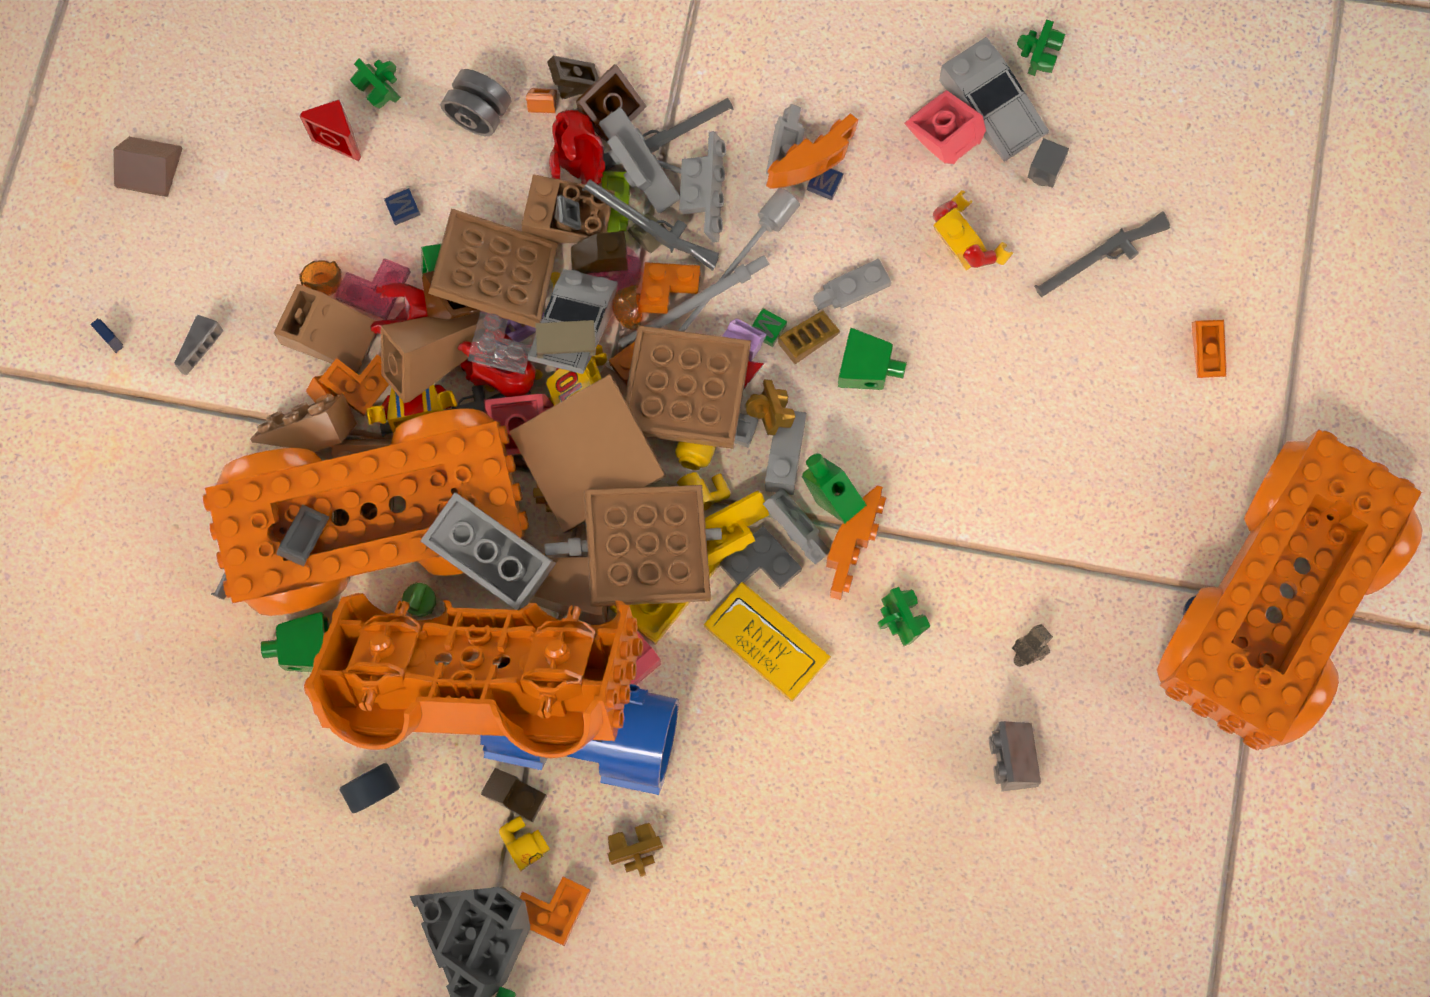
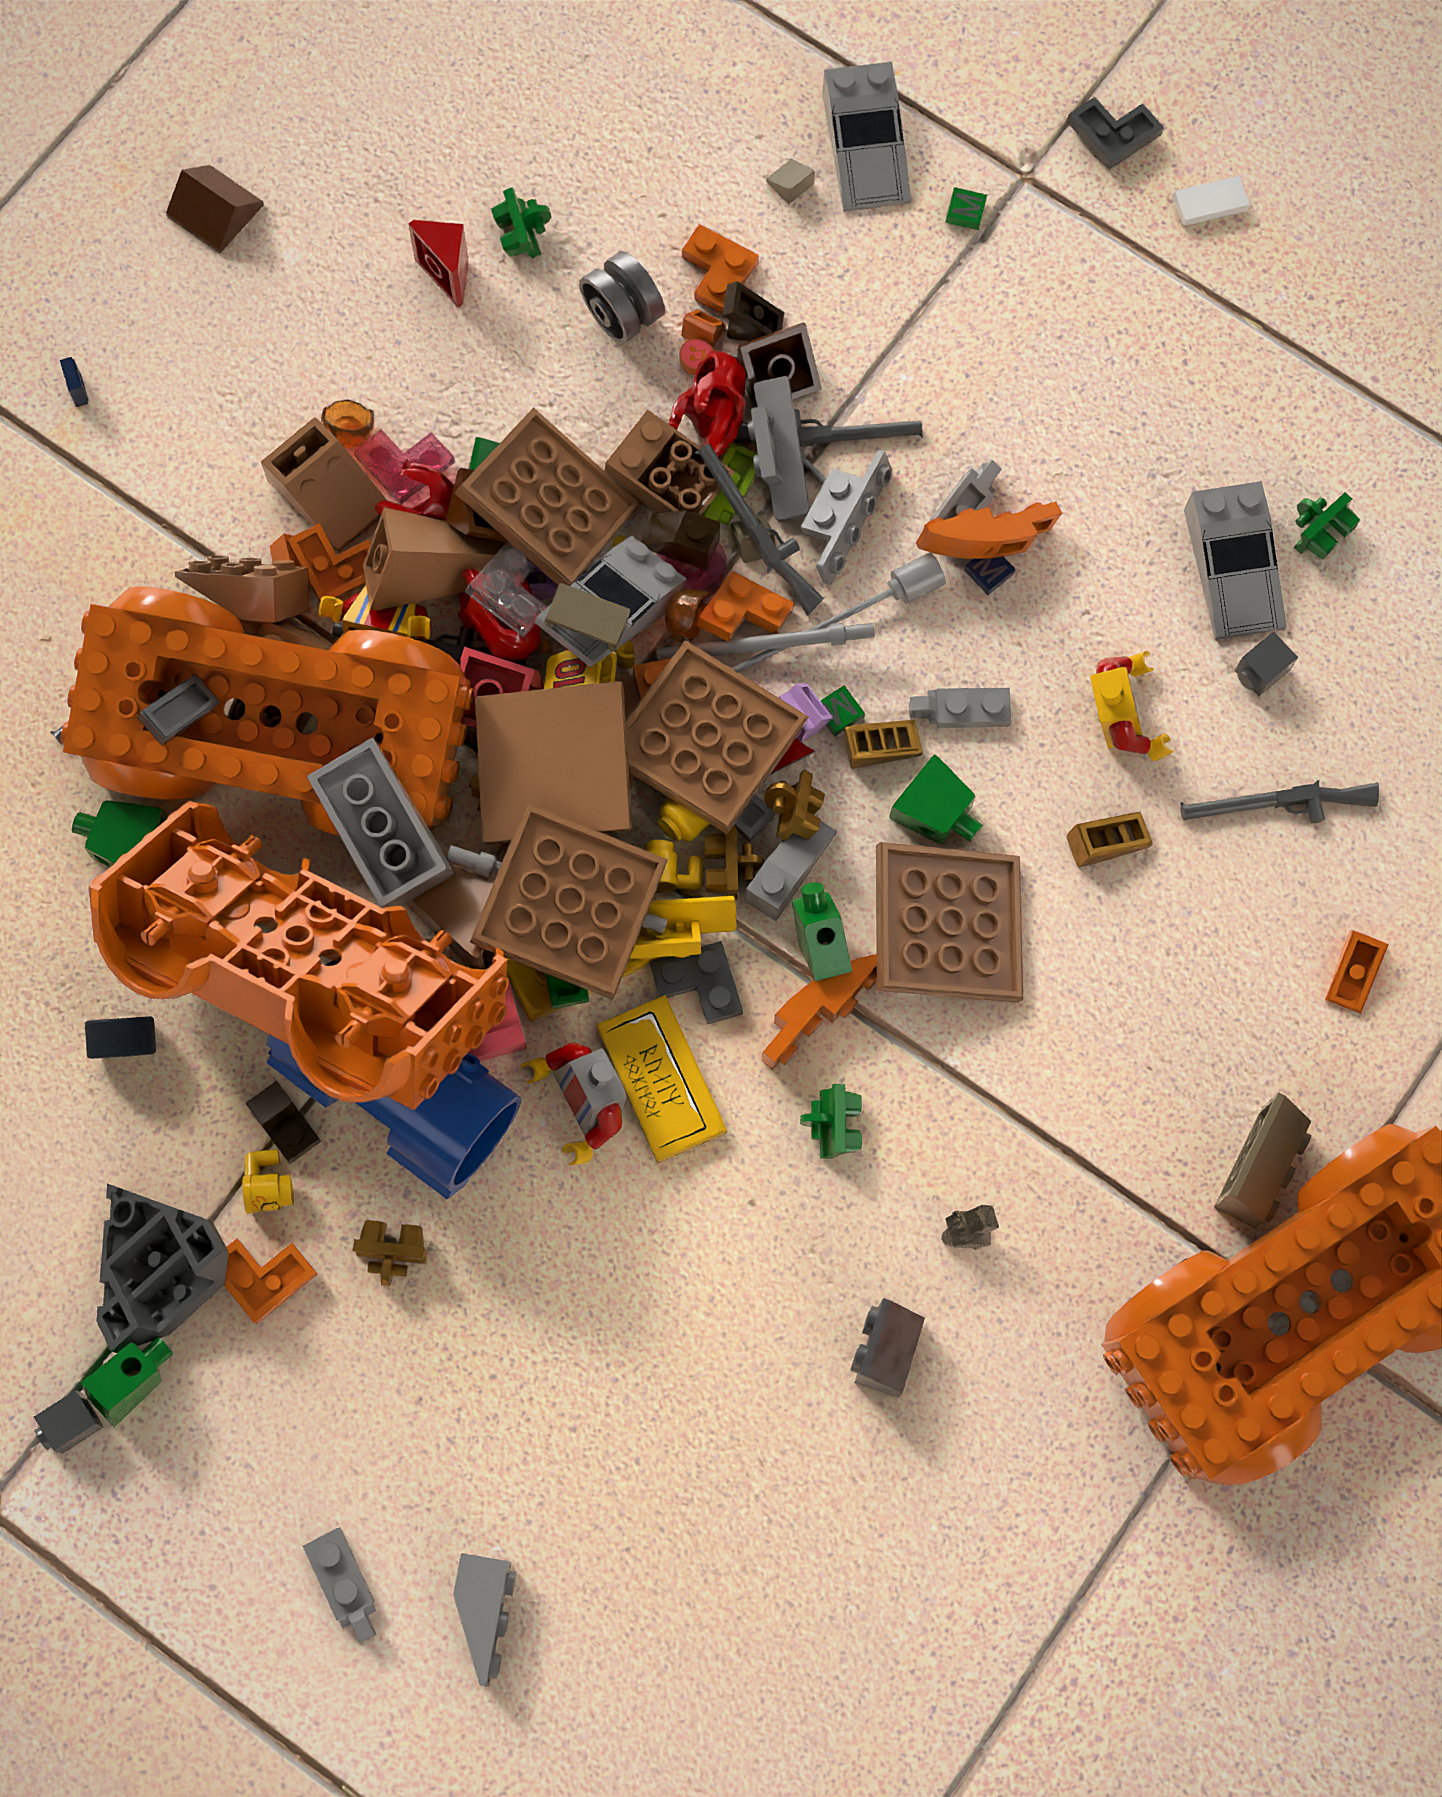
camera: 15 degrees right, 0 degrees up
(198, 341) = (172, 435): flat silver slope -> none
(402, 206) = (481, 381): dark blue tile -> none
(420, 598) = (282, 845): bright green piece -> none
(535, 46) = (723, 261): none -> orange plate
(543, 121) = (692, 353): none -> tile
(568, 212) = (665, 471): dark grey slope -> none
(671, 612) = (564, 993): none -> green tile
(722, 672) = (590, 1090): none -> torso
(746, 481) = (725, 846): none -> pearl gold hips
(797, 525) = (760, 957): light grey hinge -> none
(915, 441) = (948, 923): none -> medium nougat tile
(947, 127) = (1165, 569): coral slope -> none
(984, 345) = (1087, 846): none -> pearl gold slope
(1211, 508) = (1265, 1162): none -> dark tan slope

